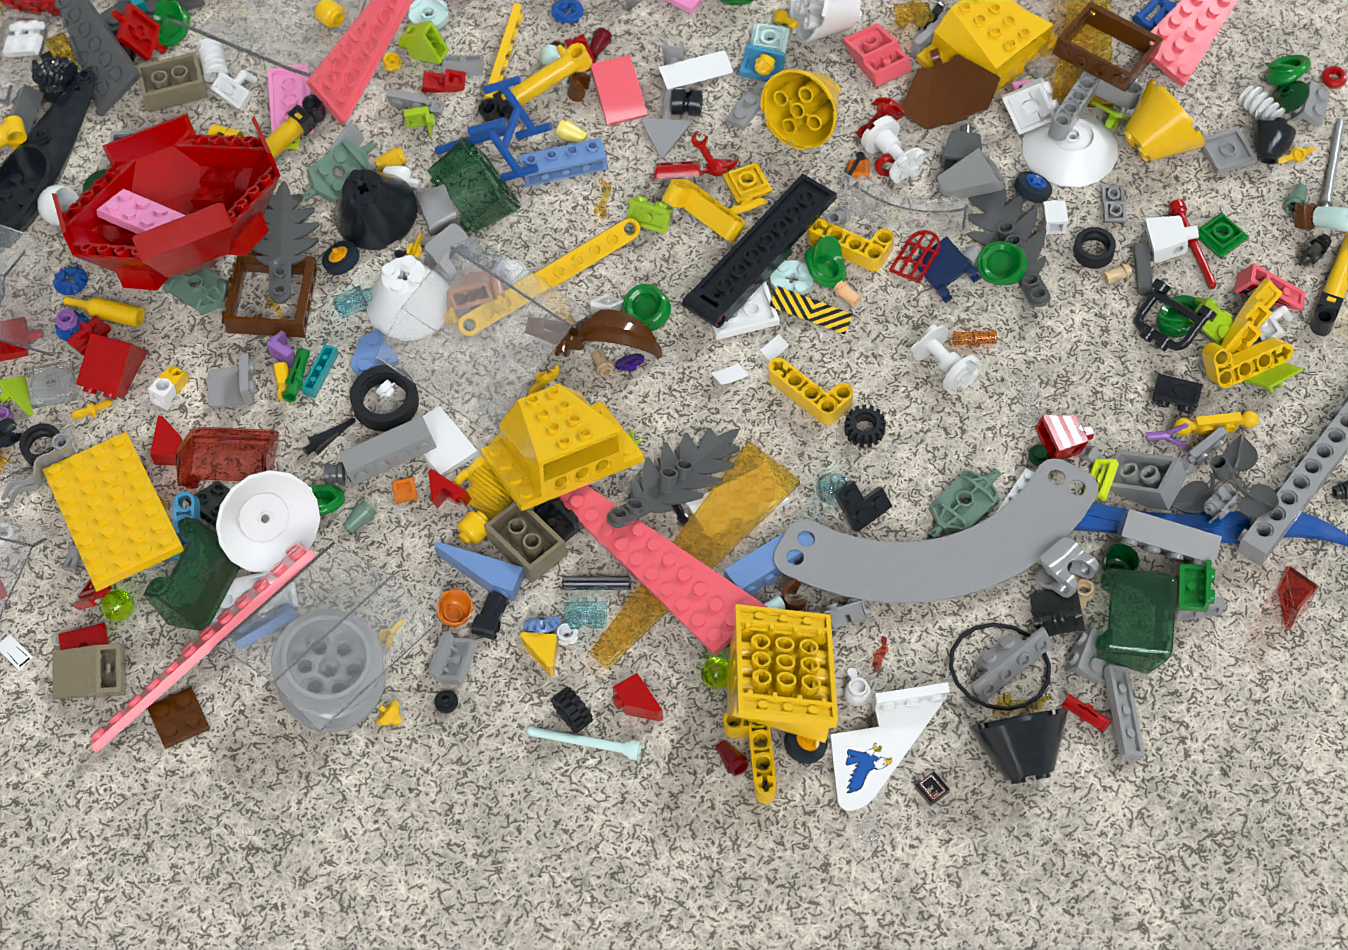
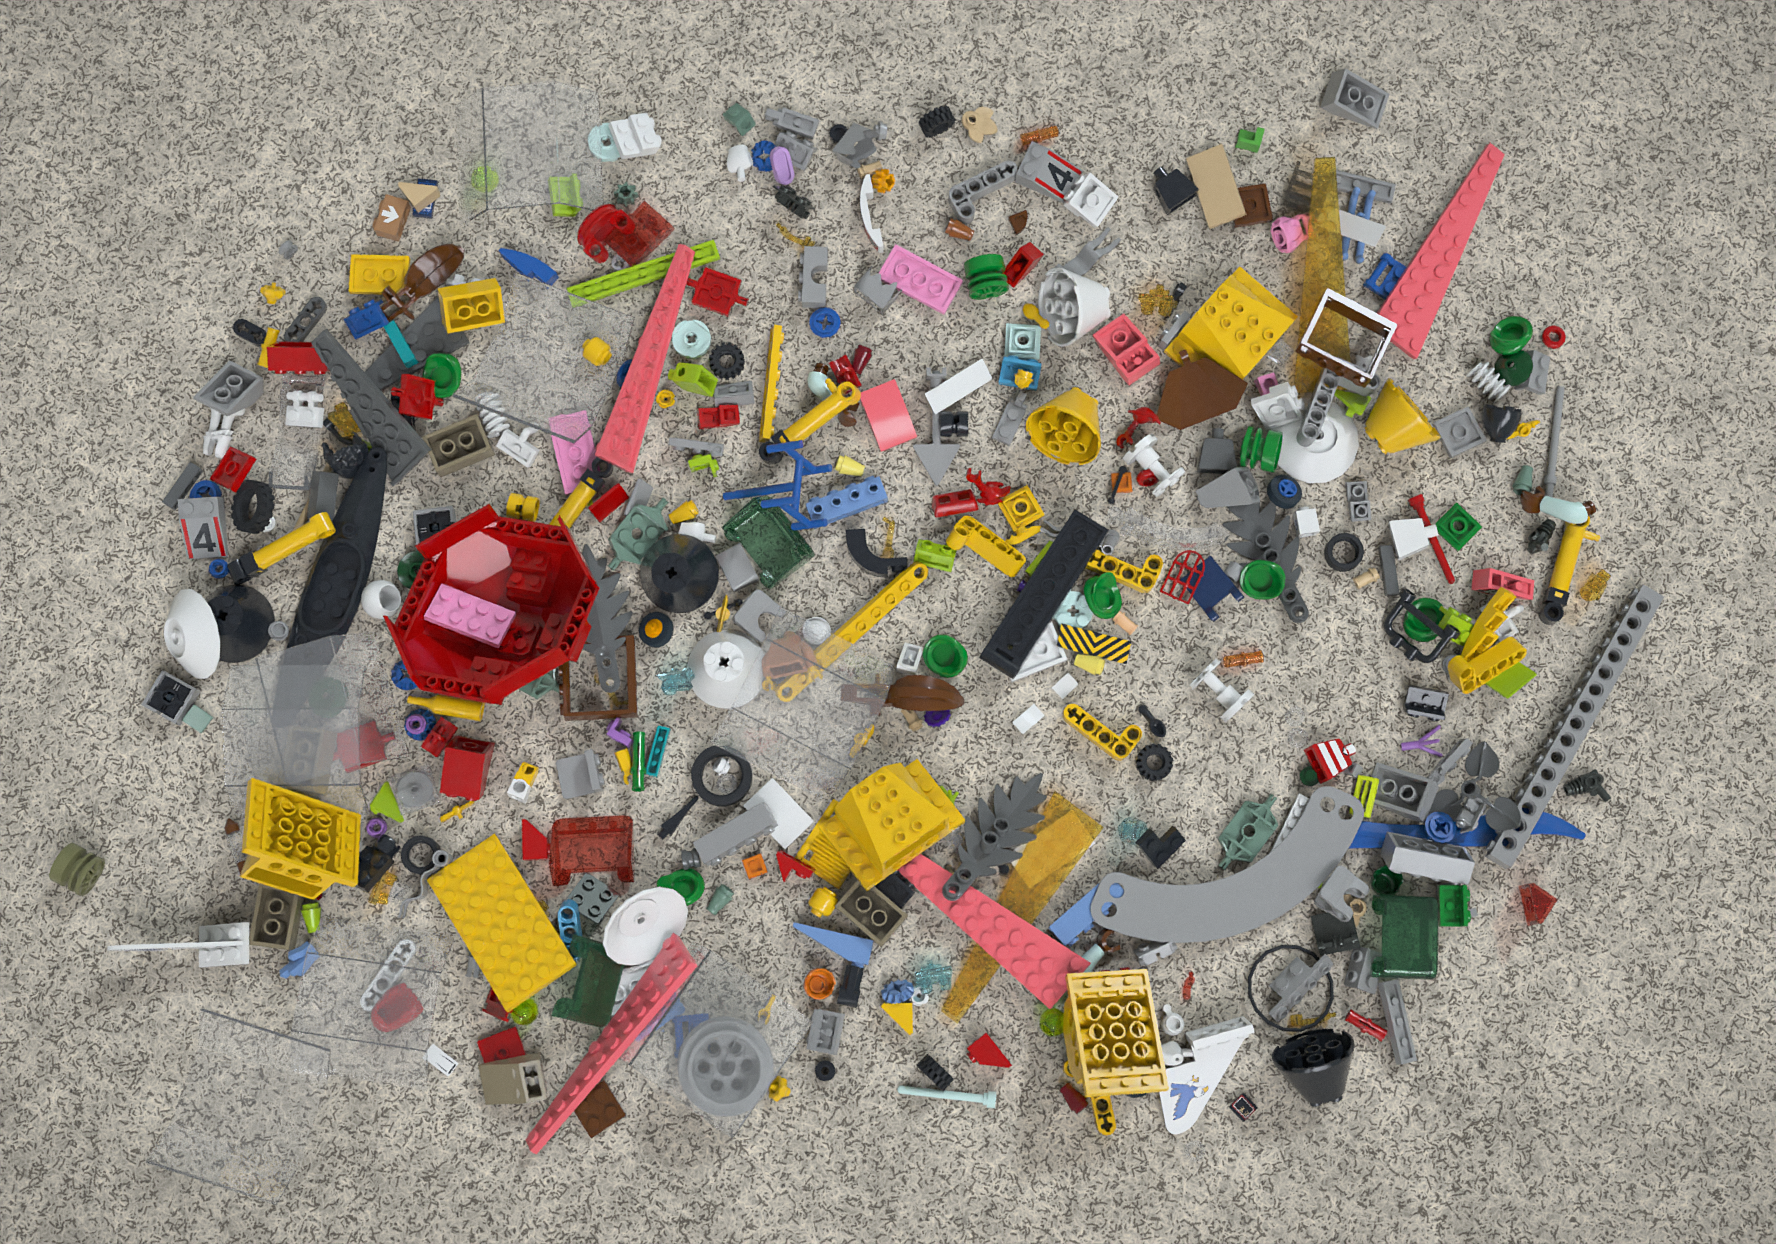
camera: 10 degrees left, 20 degrees up
(313, 144) = (608, 502): none -> red slope
(366, 351) = (700, 728): medium blue plate -> none
(461, 43) = (723, 350): none -> black tyre
(577, 215) = (867, 560): none -> black arch
(596, 583) = (937, 942): black axle -> none
(806, 328) = (1090, 663): none -> light yellow cone
(847, 719) = (1173, 1054): none -> white piece
(870, 392) = (1155, 725): none -> black piece
(1010, 142) = (1261, 449): none -> green wheel
(1185, 506) = (1436, 819): none -> blue gear
(1208, 424) = (1489, 723): yellow plate -> none

